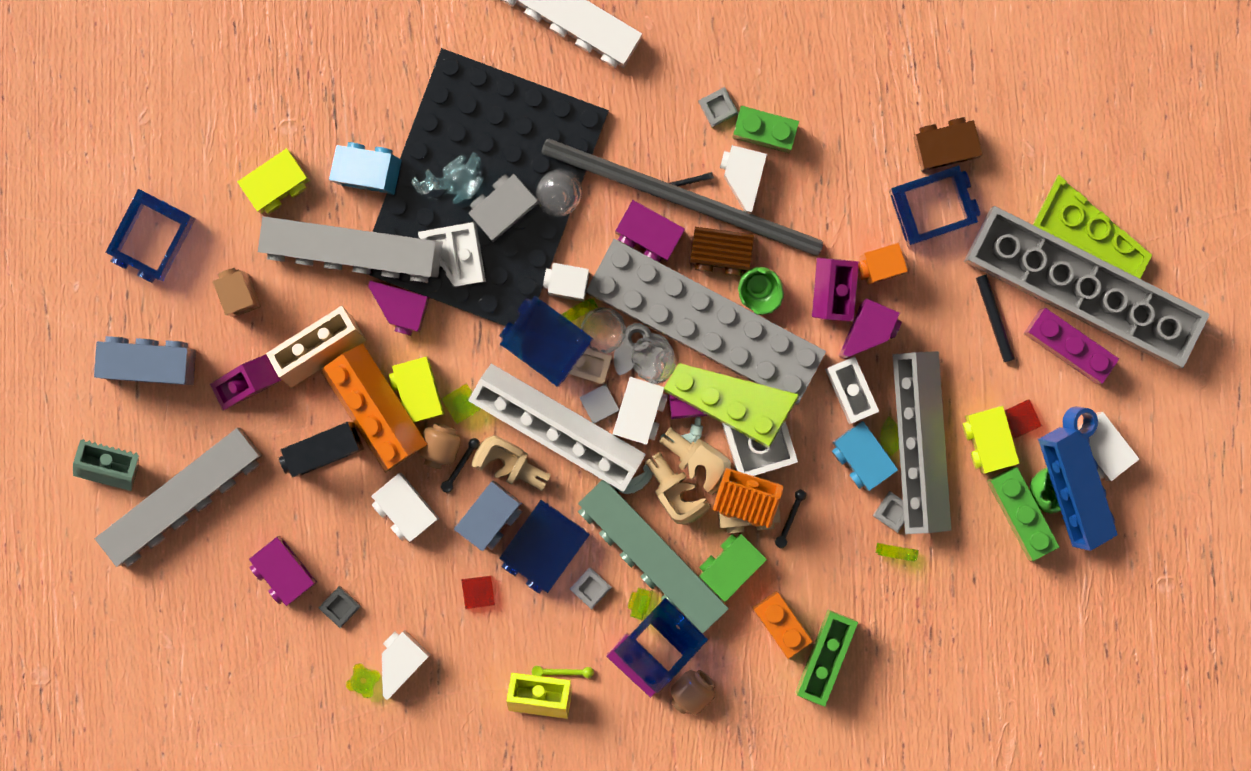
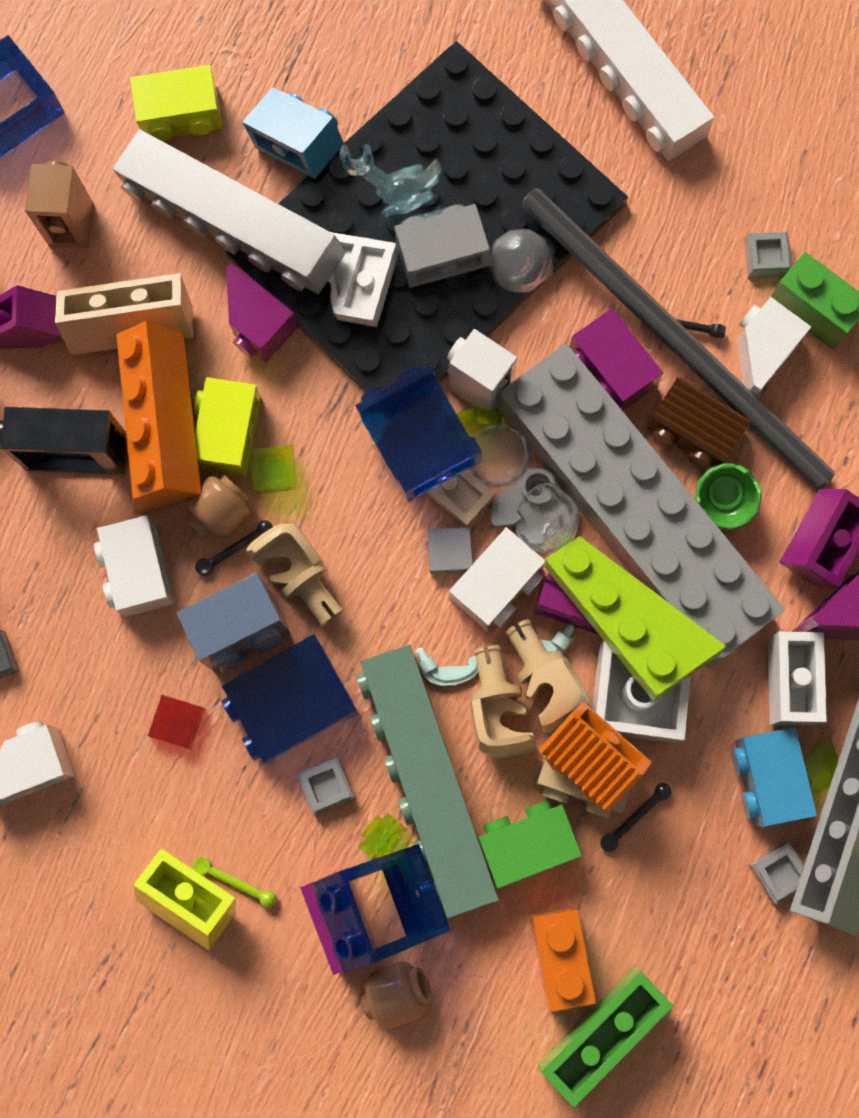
camera: 30 degrees right, 10 degrees down
(557, 427) = (380, 551): white brick -> none
(897, 552) = (765, 930): clear neon green tile -> none

